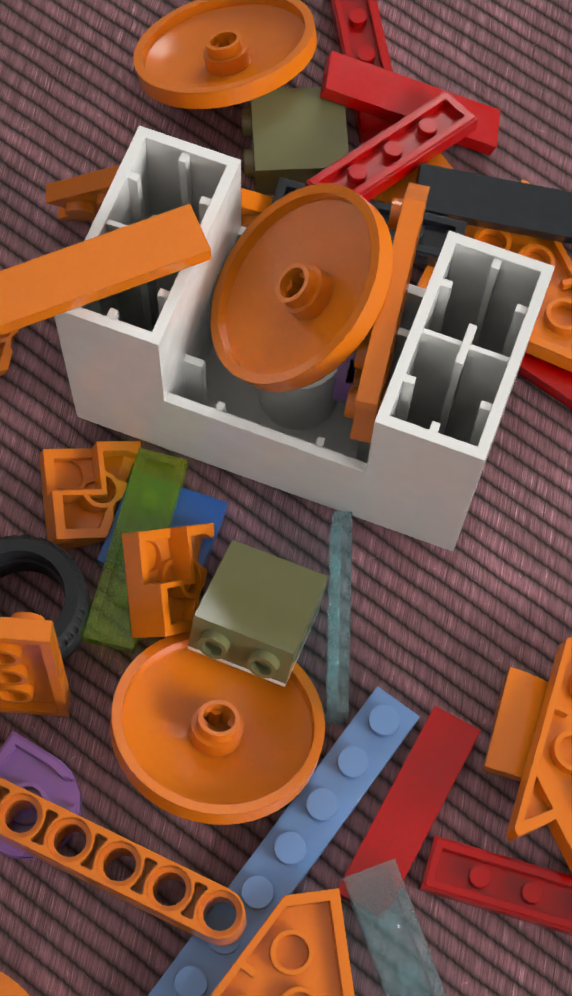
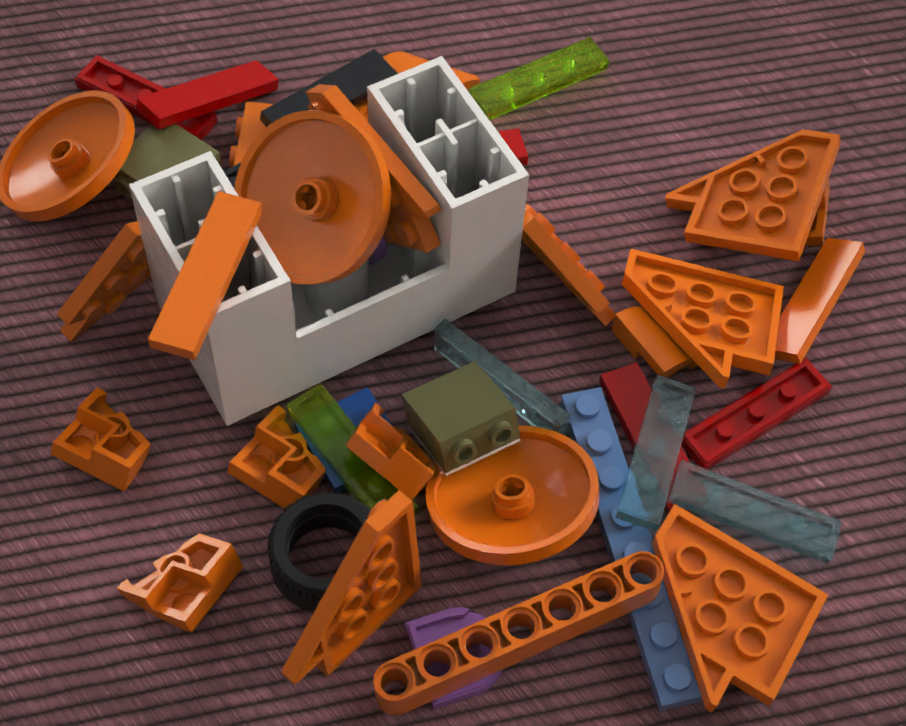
camera: 50 degrees left, 10 degrees down
(386, 826) = (656, 453): none -> clear light blue tile
(400, 148) = (238, 116): red tile -> none
(509, 543) = (565, 264): none -> orange wing

